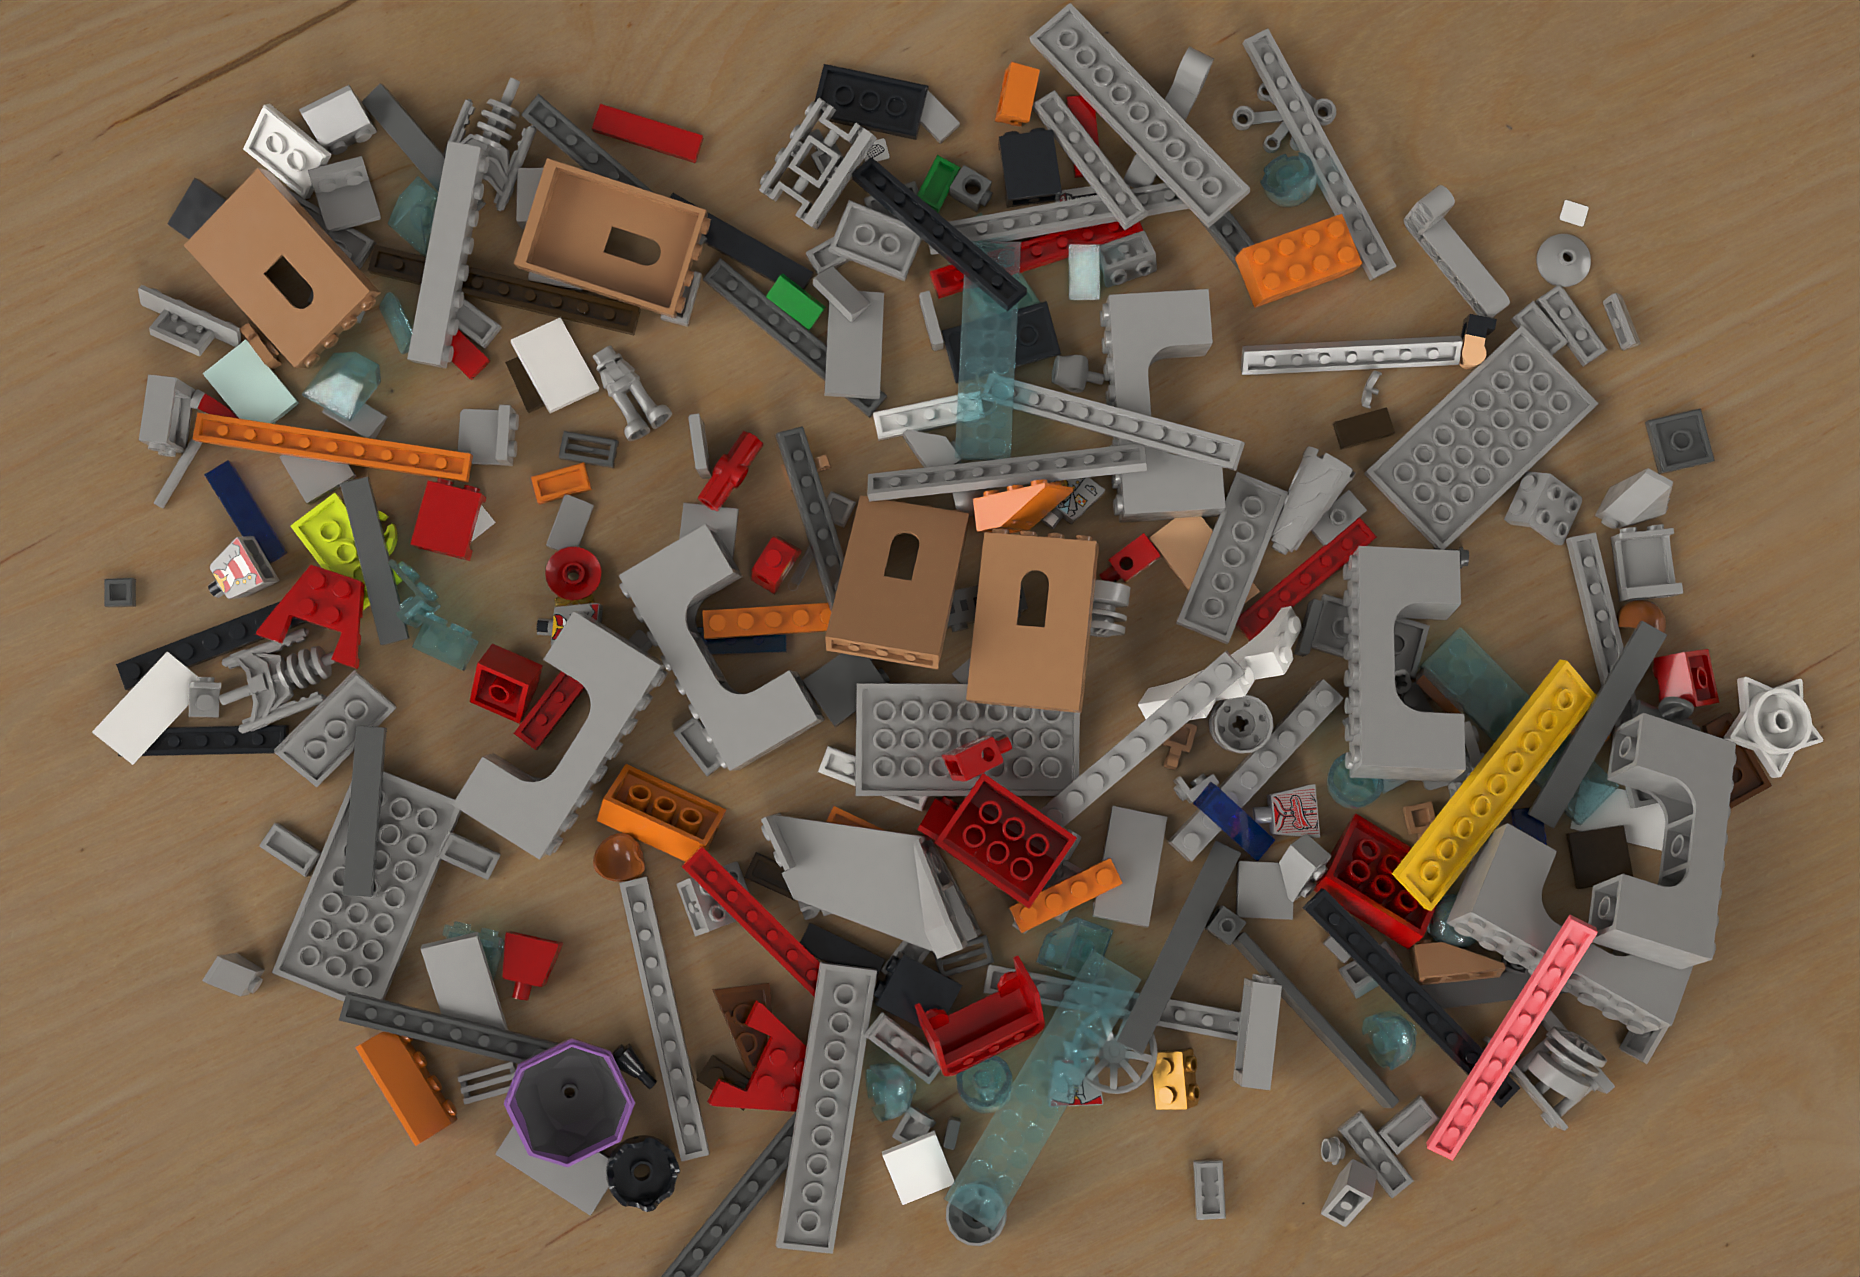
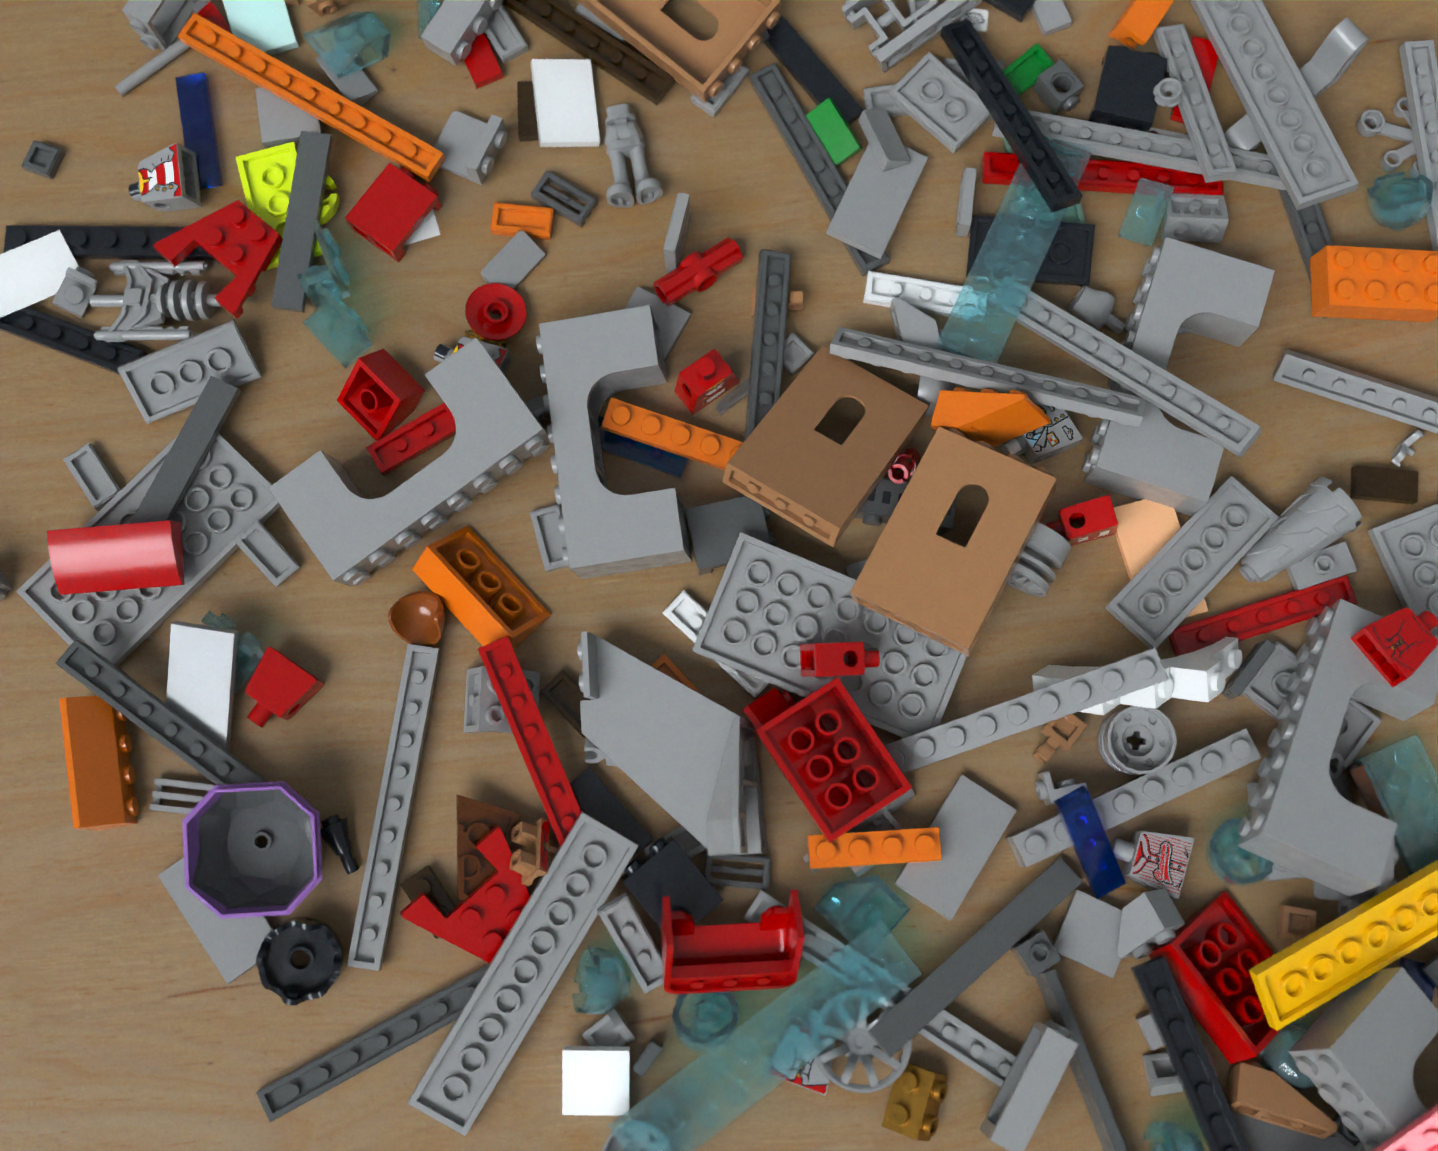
camera: 30 degrees right, 5 degrees down
(347, 911) = (117, 557): none -> slope
(796, 1008) = (536, 851): none -> medium nougat hips
(968, 571) = (907, 468): none -> red pin
(1060, 156) = (1168, 85): none -> light grey plate
(1415, 566) = (1398, 643): none -> red torso

